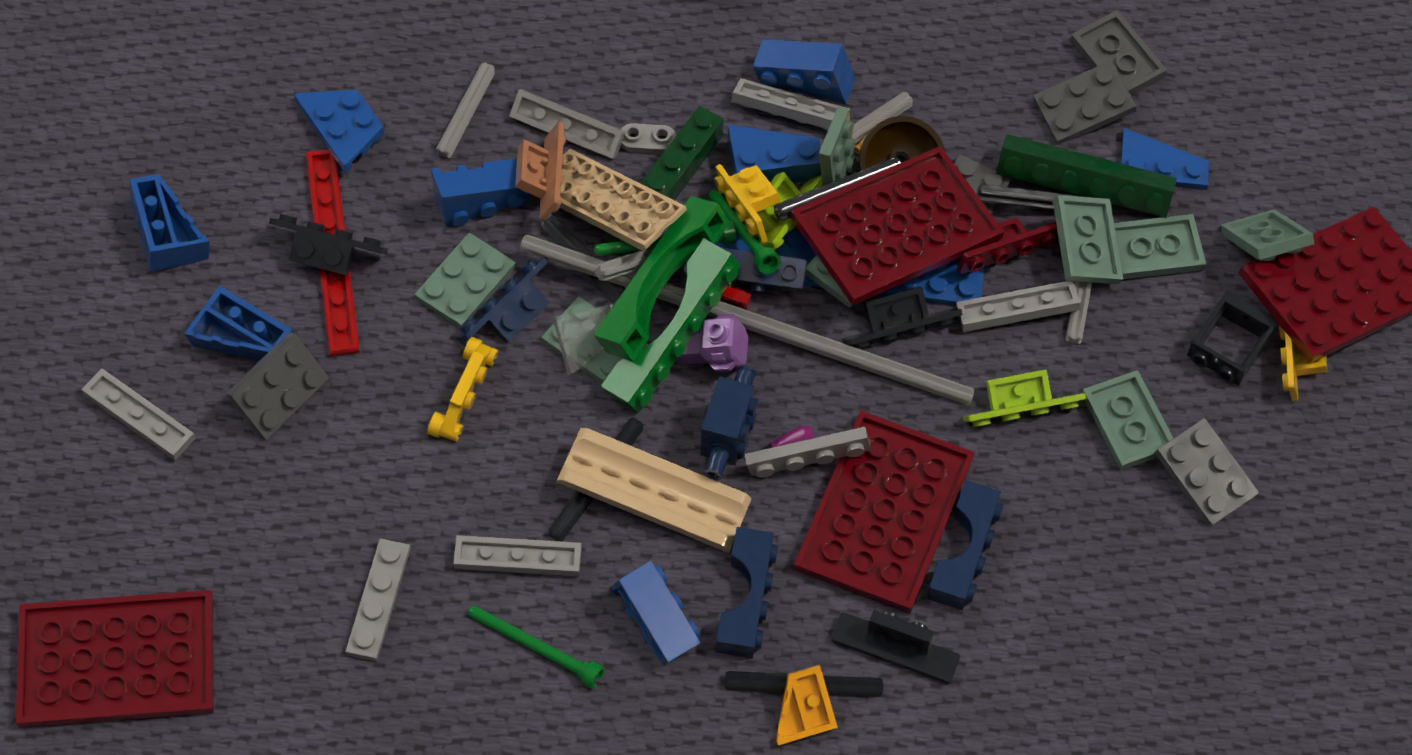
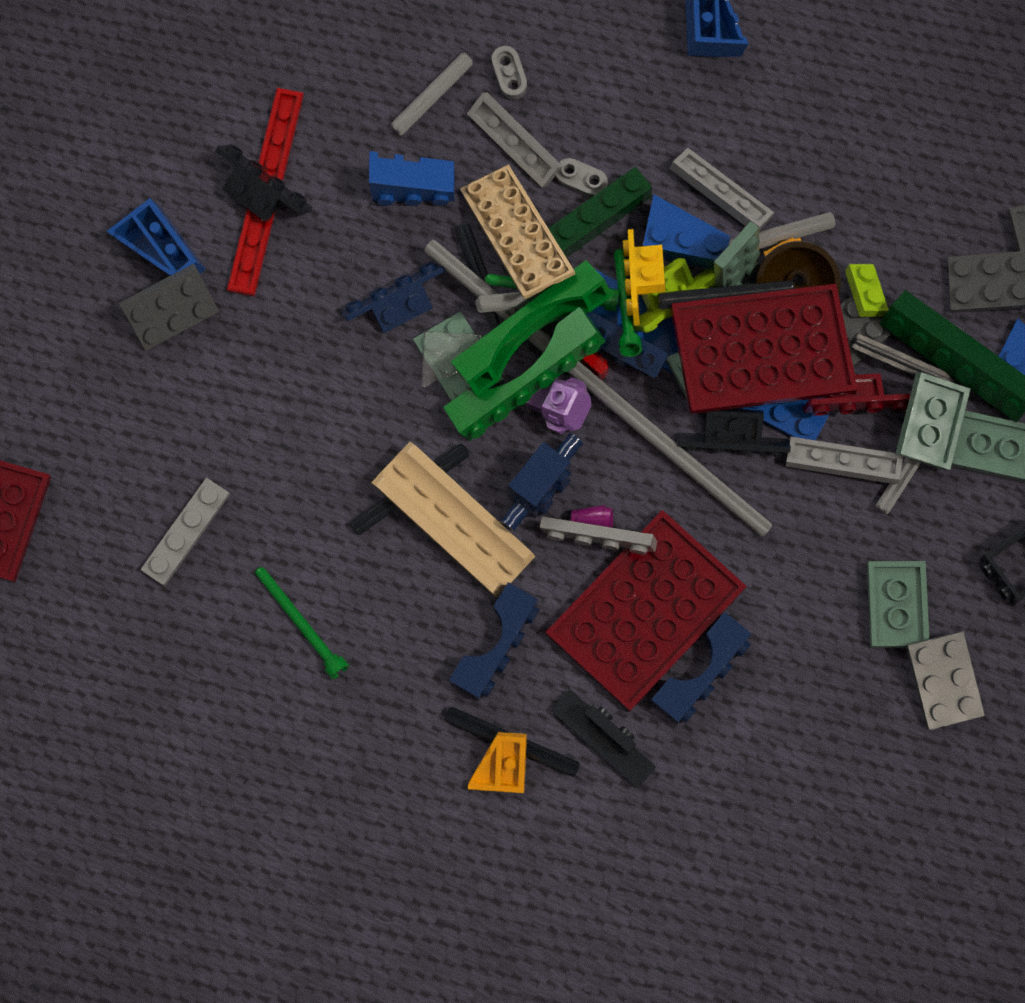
camera: 25 degrees right, 15 degrees up
(138, 414) = (47, 289): light grey plate -> none
(163, 225) = (127, 121): blue wedge -> none
(341, 122) = (318, 69): blue wing -> none
(463, 396) = (340, 355): yellow plate -> none
(465, 280) = (369, 260): sand green plate -> none
(517, 555) = (315, 536): light grey plate -> none
(537, 67) = (509, 74): none -> light grey plate
(540, 170) = (469, 180): nougat bracket -> none
(657, 612) = (410, 634): blue wedge -> none
(806, 68) = (749, 159): blue wedge -> none
(970, 148) = (866, 290): none -> lime plate
(1020, 394) = (811, 547): lime bracket -> none

